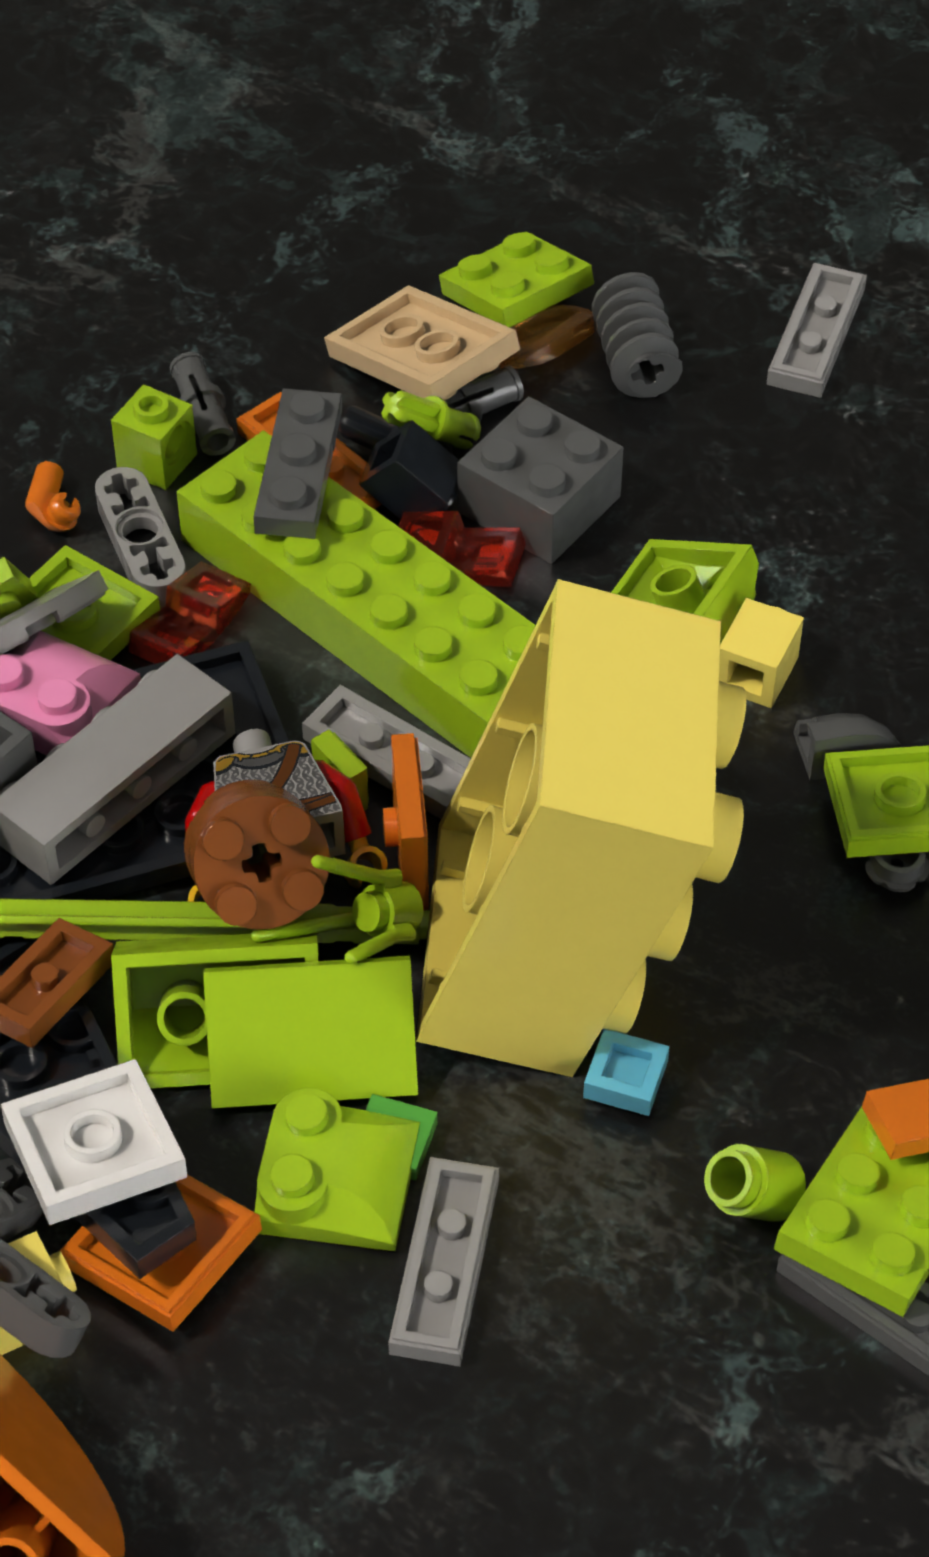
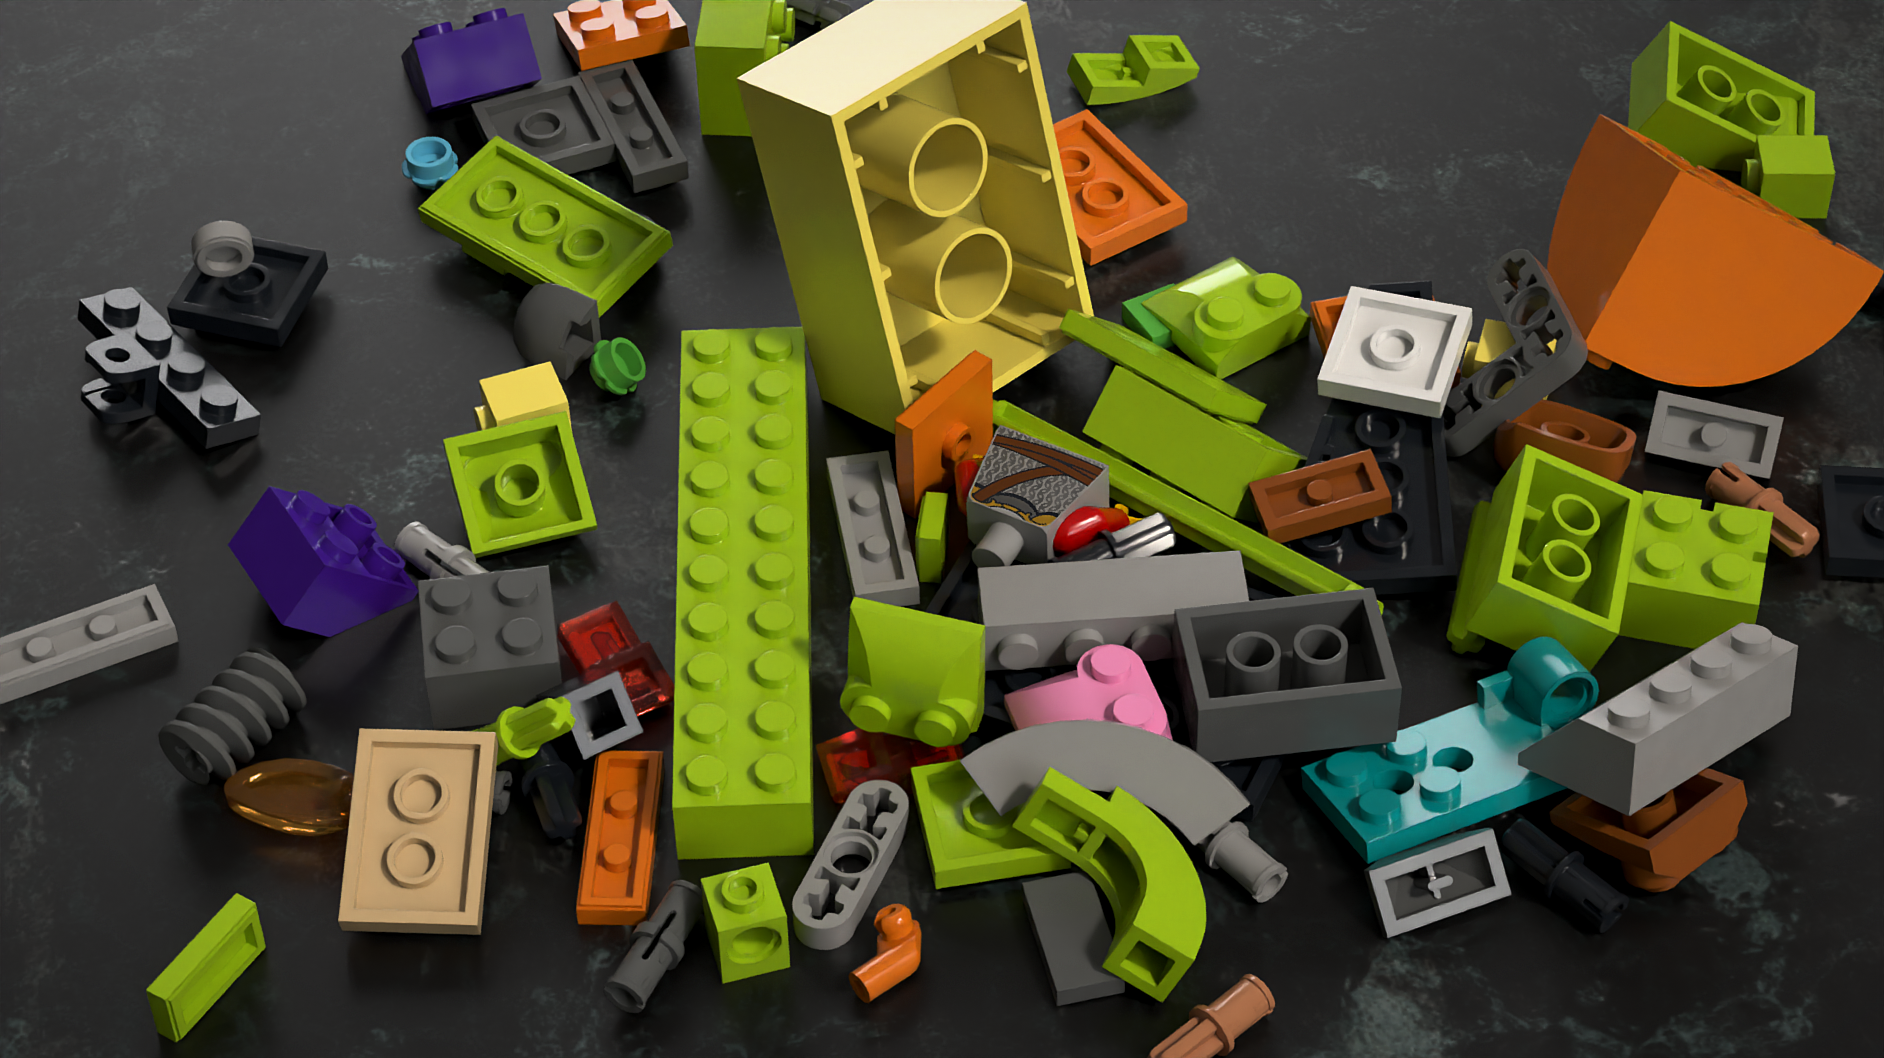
camera: 135 degrees left, 5 degrees down
(166, 819) = (1140, 539): none -> black axle
(194, 596) = (914, 673): none -> lime slope
(222, 841) = (1103, 417): dark orange brick -> none
(298, 464) = (696, 721): dark grey plate -> none
(385, 910) = (1038, 378): lime plant -> none
(444, 1262) = (1209, 236): light grey tile -> none
(447, 215) = (206, 968): none -> lime tile
(516, 279) = (245, 846): lime plate -> none
(600, 1215) = (1111, 190): none -> orange plate
(640, 525) = (427, 551): none -> light grey pin
(730, 460) = (319, 562): none -> dark purple slope
(730, 1411) = (1143, 69): none -> lime slope
(769, 738) = (617, 366): none -> bright green plate

